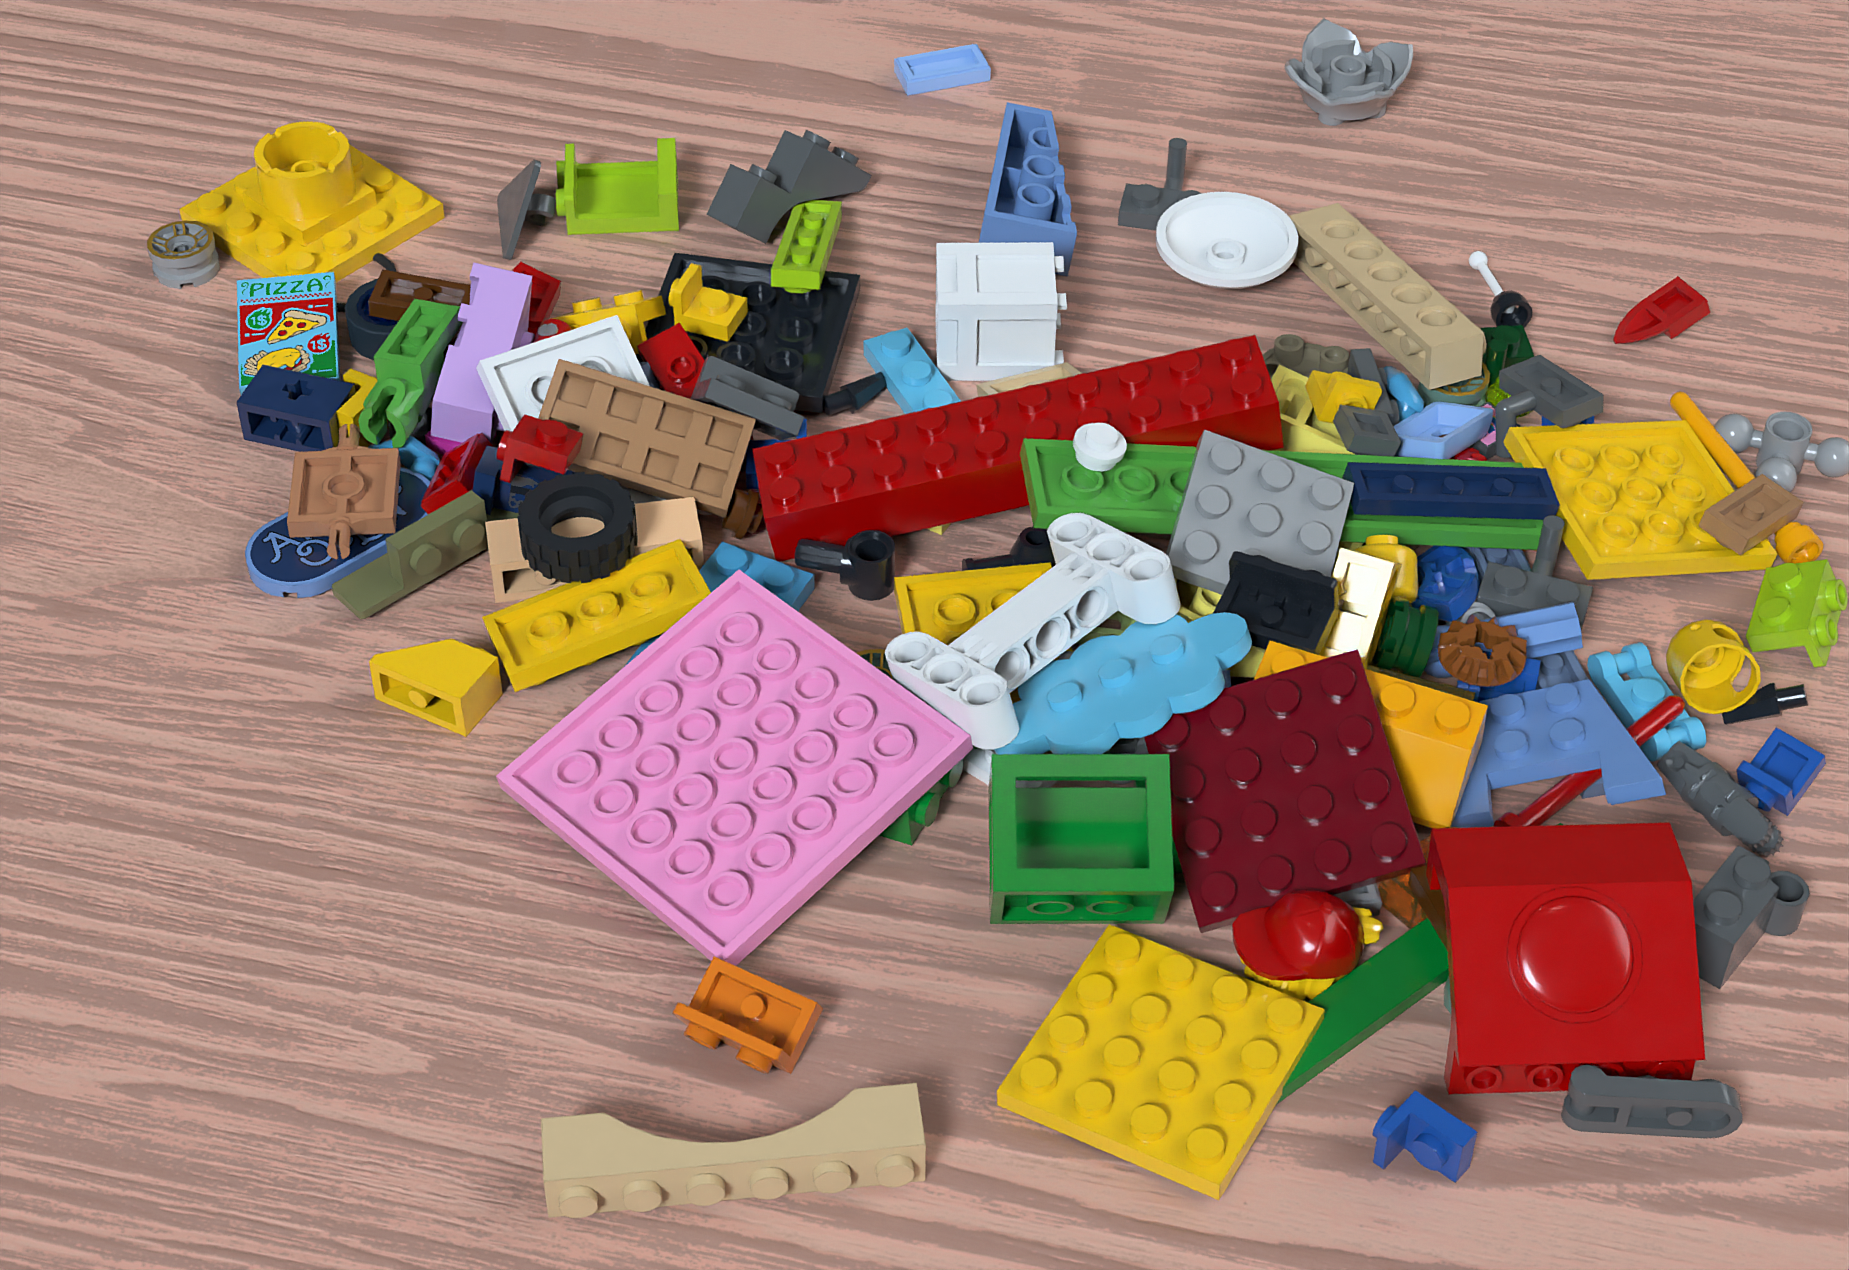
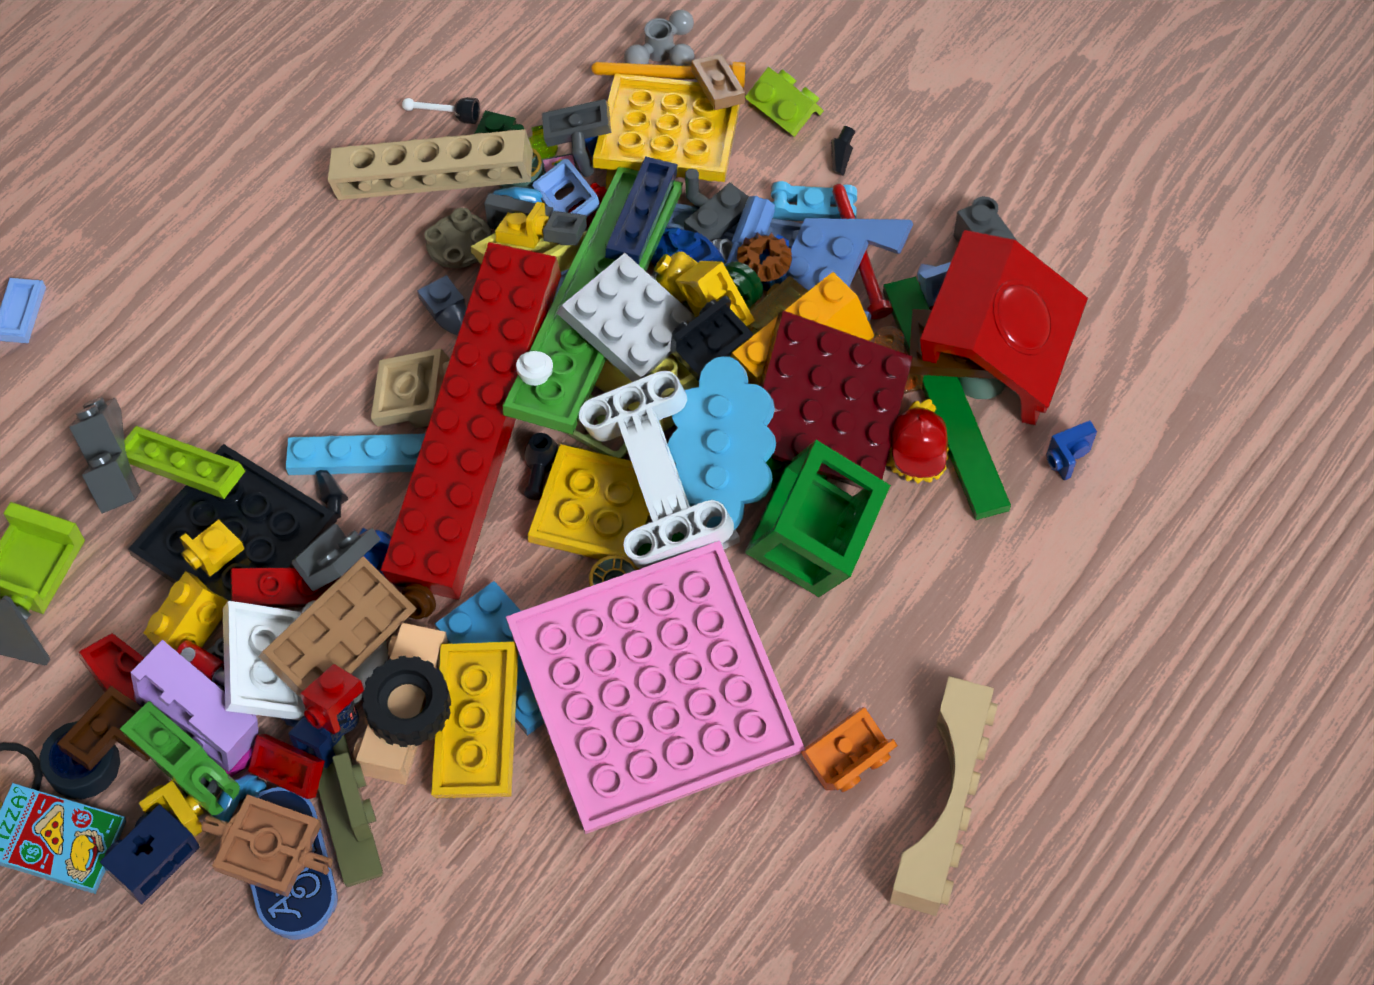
camera: 65 degrees left, 15 degrees up
(439, 682) = (482, 839): yellow slope -> none
(863, 563) = (496, 556): black axle -> none
(996, 309) = (321, 377): white container -> none
(1028, 187) = (202, 314): medium blue wedge -> none
(1145, 203) = (252, 244): dark grey plate -> none
(1161, 1060) = (962, 549): yellow plate -> none
(1226, 240) = (325, 210): white dish -> none
(1344, 79) = (201, 86): light grey brick -> none
(1650, 1105) = (1088, 338): dark grey plate -> none
(1665, 311) = (516, 39): red plate -> none
(1704, 663) = (806, 161): yellow helmet -> none
(1719, 799) = (902, 204): dark grey hinge -> none
(1781, 772) = (898, 169): blue bracket -> none

